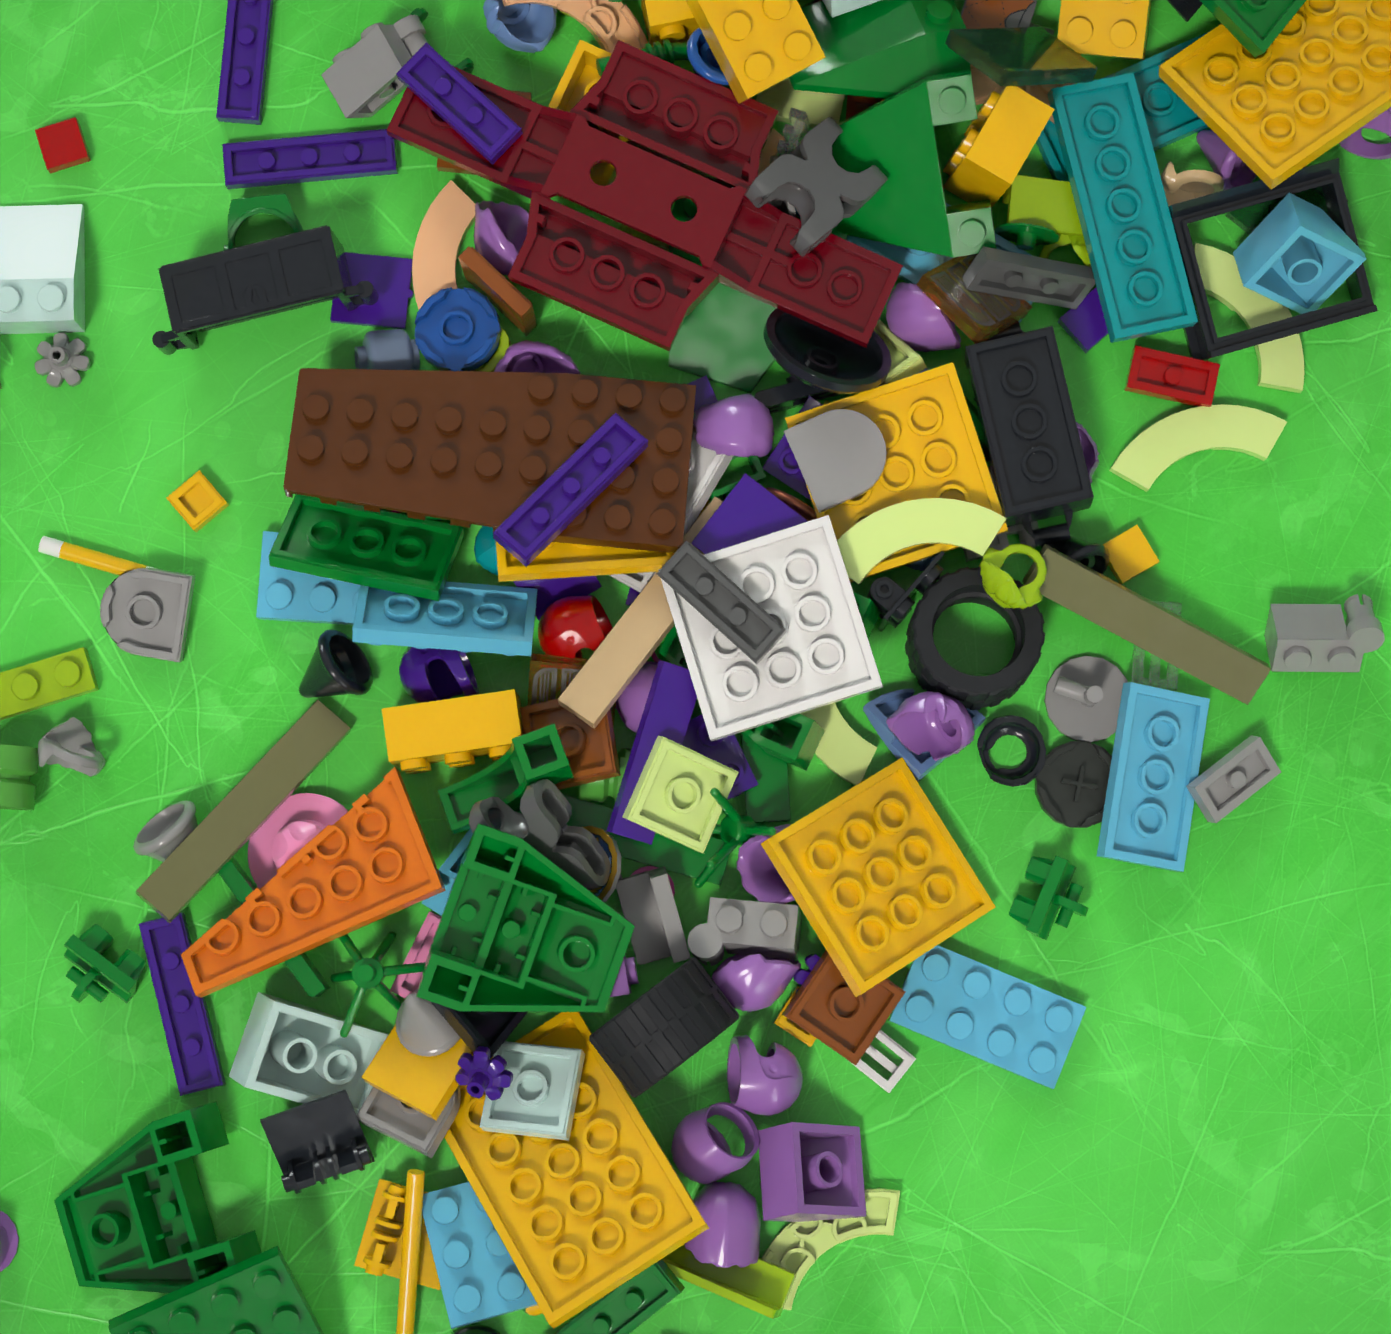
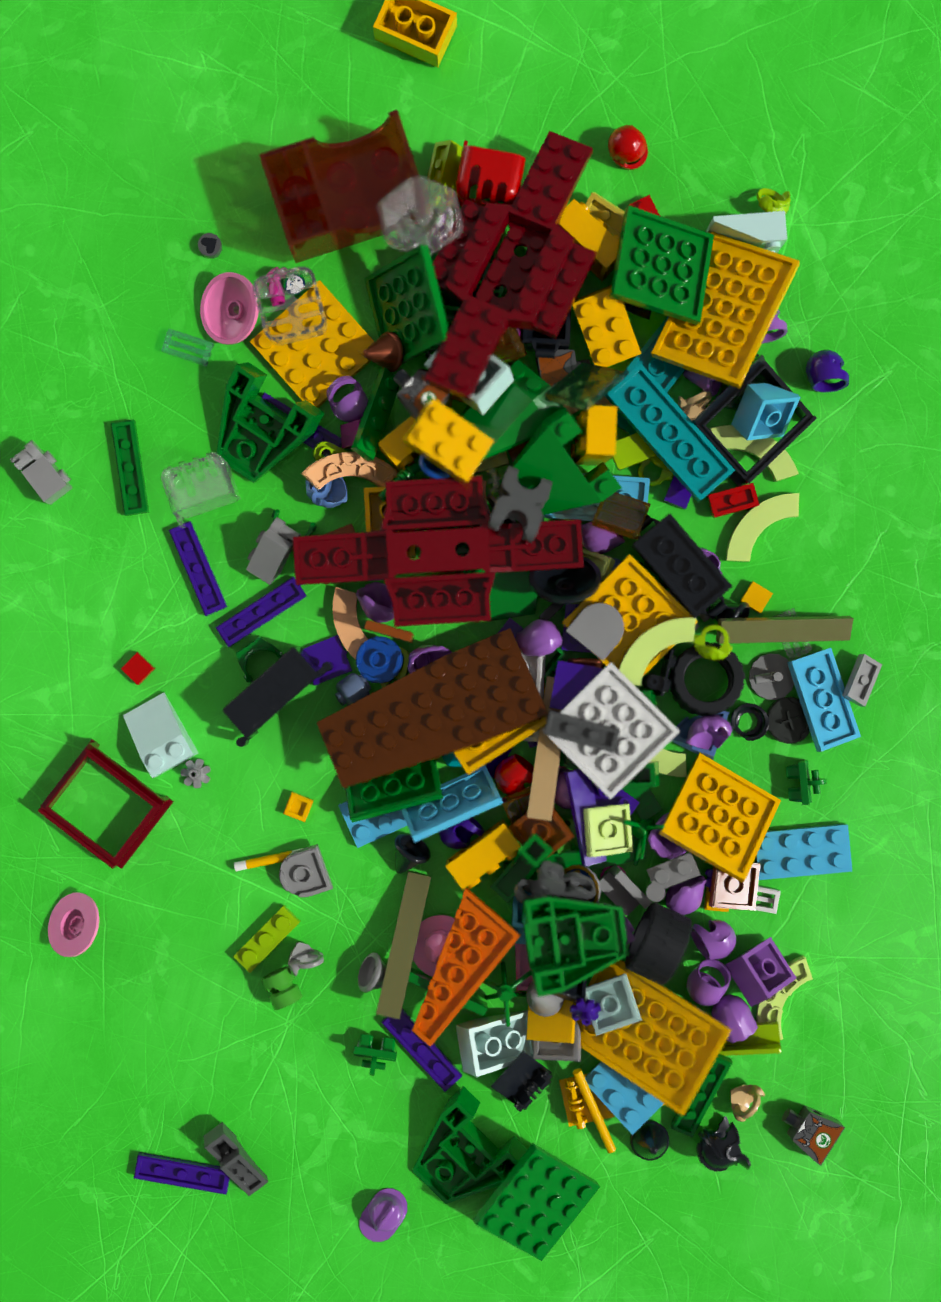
camera: 30 degrees left, 5 degrees up
(459, 103) = (324, 553): dark purple tile -> none
(570, 489) = (480, 715): dark purple tile -> none
(1027, 235) = (629, 470): green piece -> none
(1029, 278) = (642, 491): dark grey plate -> none
(1319, 638) = (870, 591): light grey hinge -> none

